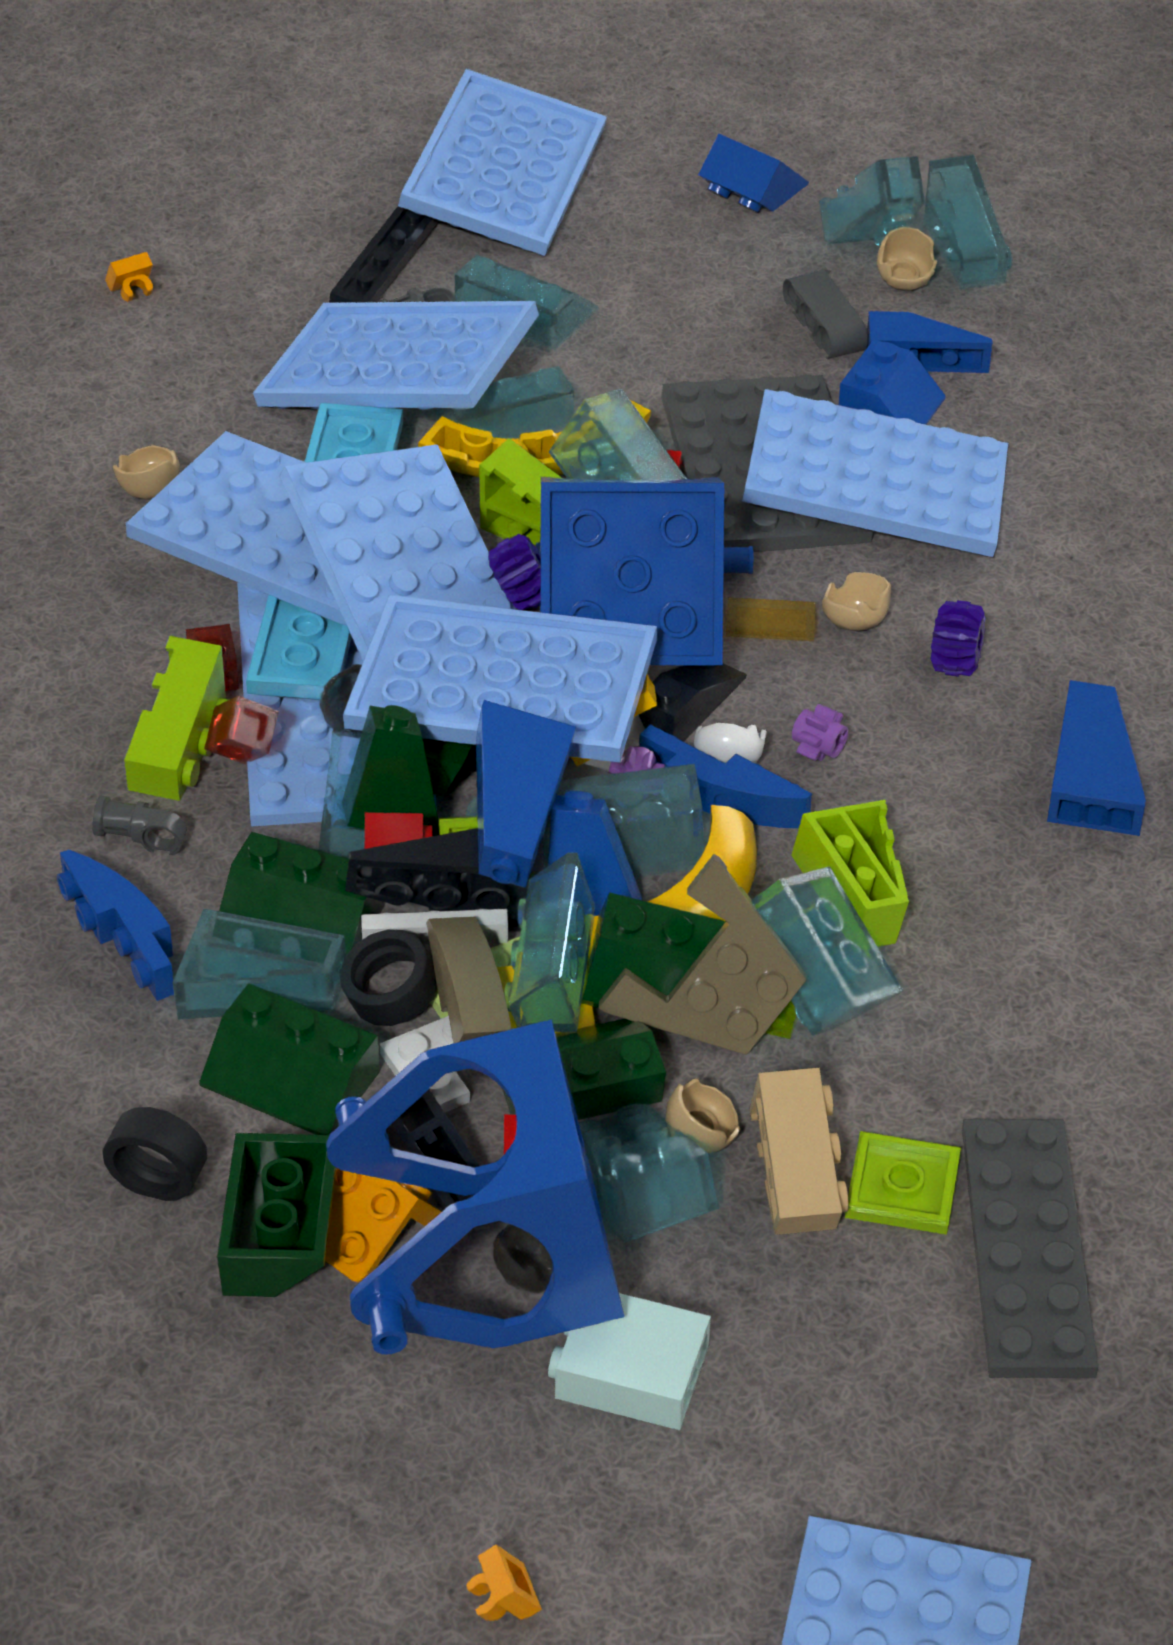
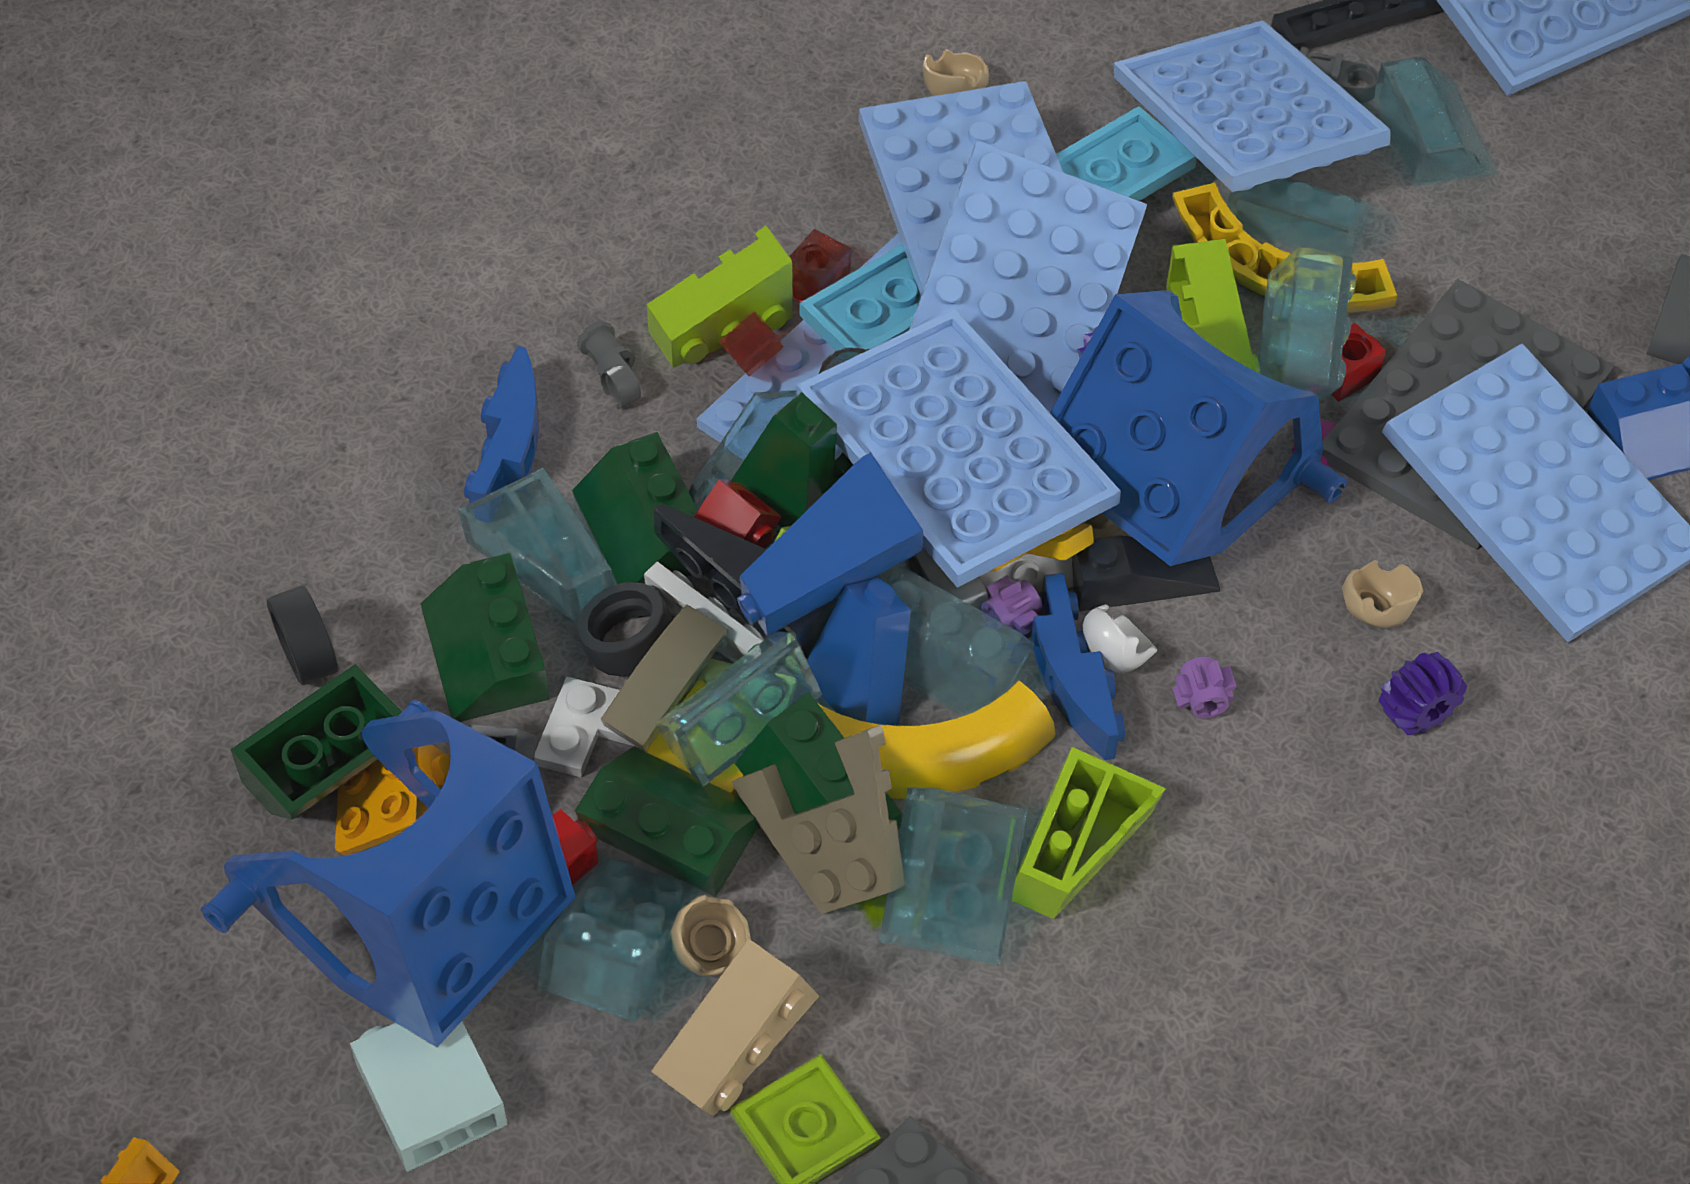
camera: 45 degrees right, 10 degrees up
(770, 619) = (1299, 555): clear yellow tile -> none
(1095, 765) = (1408, 897): blue slope -> none

